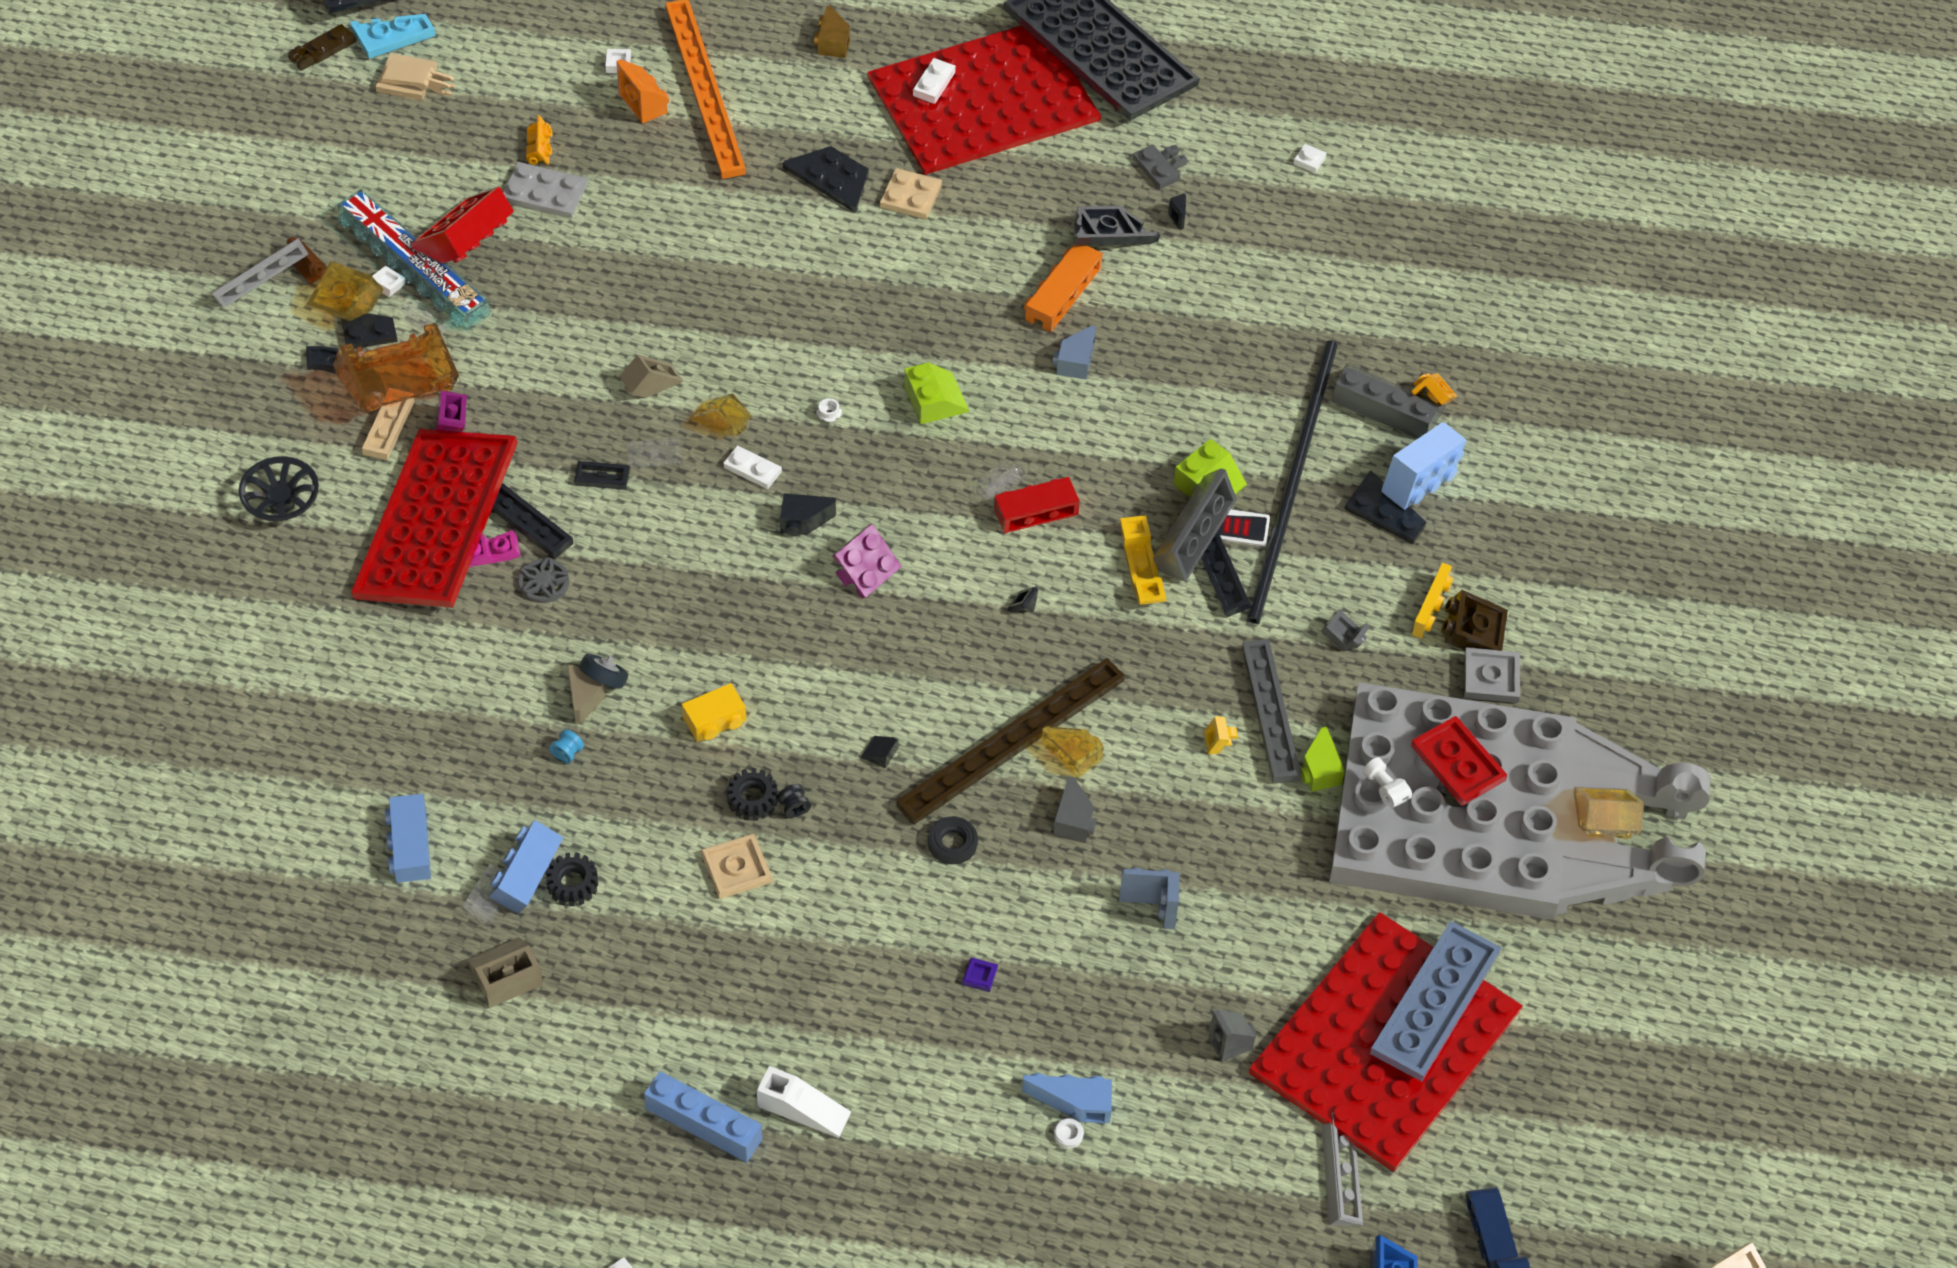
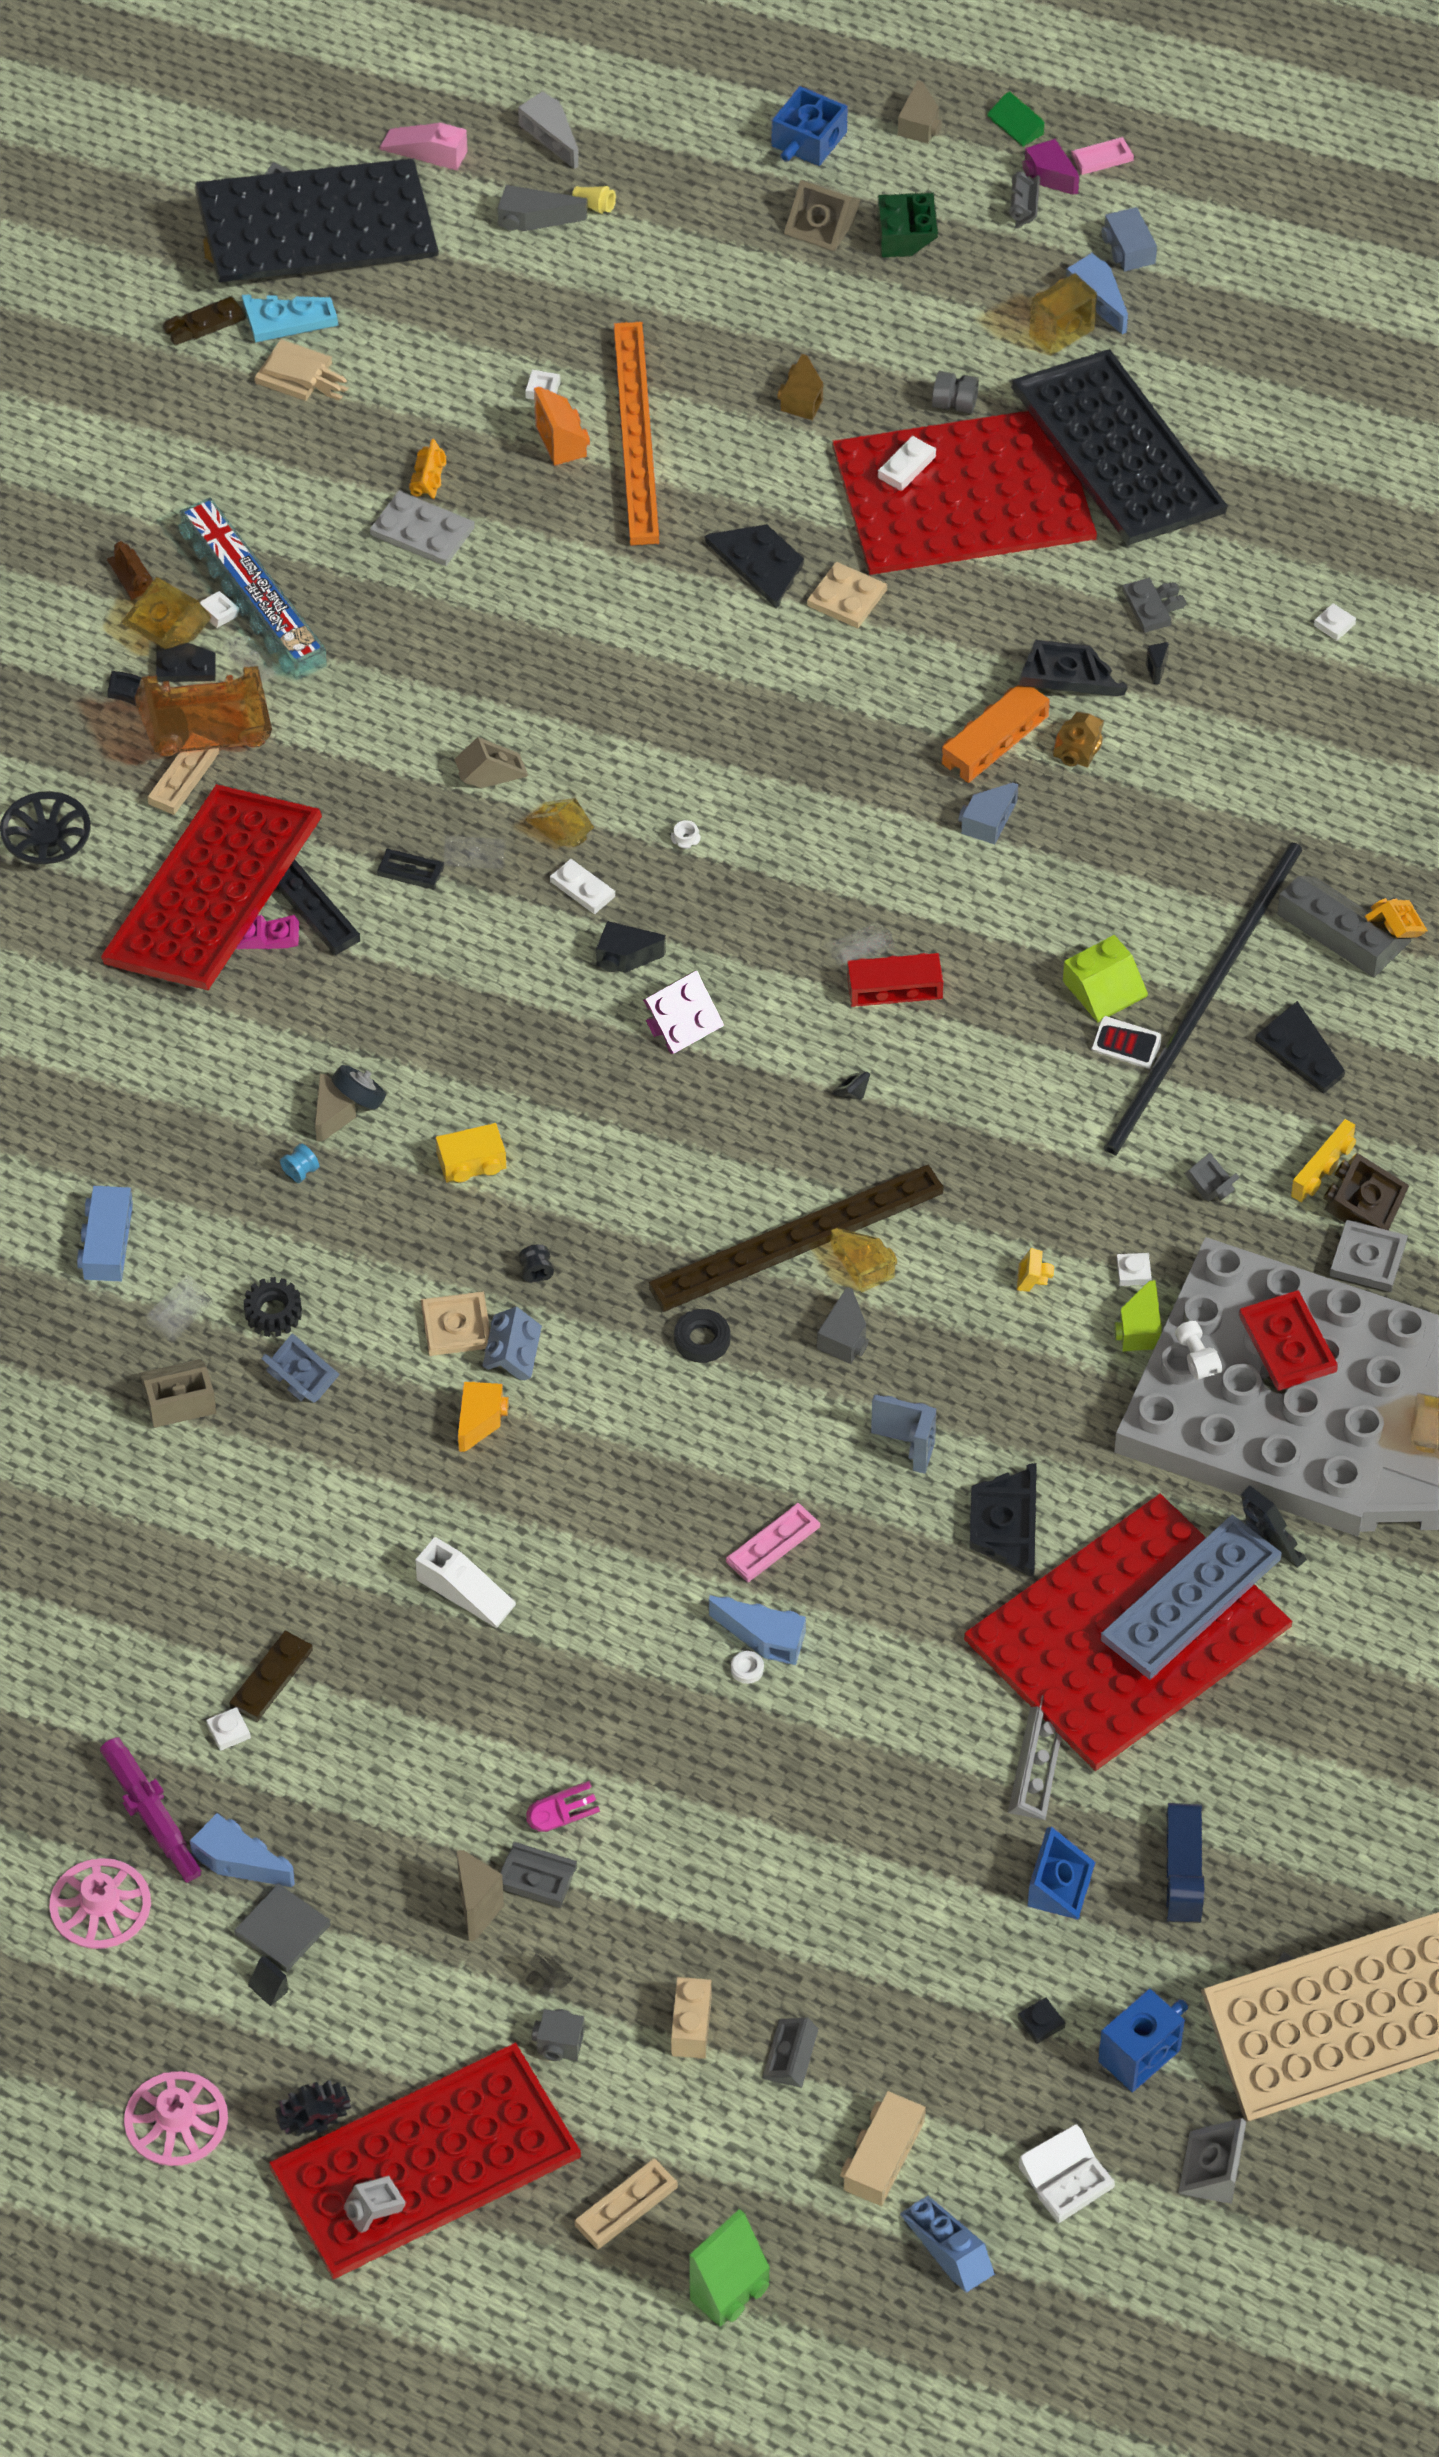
camera: 15 degrees right, 0 degrees up
(260, 273) = (76, 579): light grey slope -> none
(451, 412) = (255, 770): magenta slope -> none
(465, 226) = (318, 558): red slope -> none
(524, 866) = (223, 1283): medium blue brick -> none
(543, 580) = (317, 977): dark grey wheel -> none
(610, 930) = (301, 1368): none -> sand blue bracket
(647, 1221) = (271, 1676): none -> dark brown plate
(703, 1116) = (354, 1579): medium blue brick -> none
(752, 780) = (491, 1263): black tyre -> none
(778, 942) = (480, 1412): none -> light orange slope
(791, 875) = (513, 1343): none -> sand blue bracket
(881, 750) = (647, 1225): black slope -> none
(933, 392) = (812, 832): lime slope -> none
(957, 19) = (955, 392): none -> dark grey wheel
(980, 974) = (695, 1484): dark purple tile -> none
(1061, 1015) = (772, 1542): none -> bright pink tile
(1133, 283) = (1079, 739): none -> pearl gold hand
(1140, 562) = (999, 1061): yellow slope -> none
(1195, 526) = (1069, 1032): dark grey slope -> none
(1224, 578) = (1087, 1085): black plate -> none
(1231, 1034) = (953, 1593): dark grey slope -> none
(1256, 958) = (1006, 1519): none -> black wing
(1271, 711) = (1100, 1254): dark grey plate -> none
(1302, 719) = (1133, 1269): none -> white plate
(1424, 466) = (1355, 1004): light blue brick -> none
(1486, 922) = (1267, 1522): none -> black wing

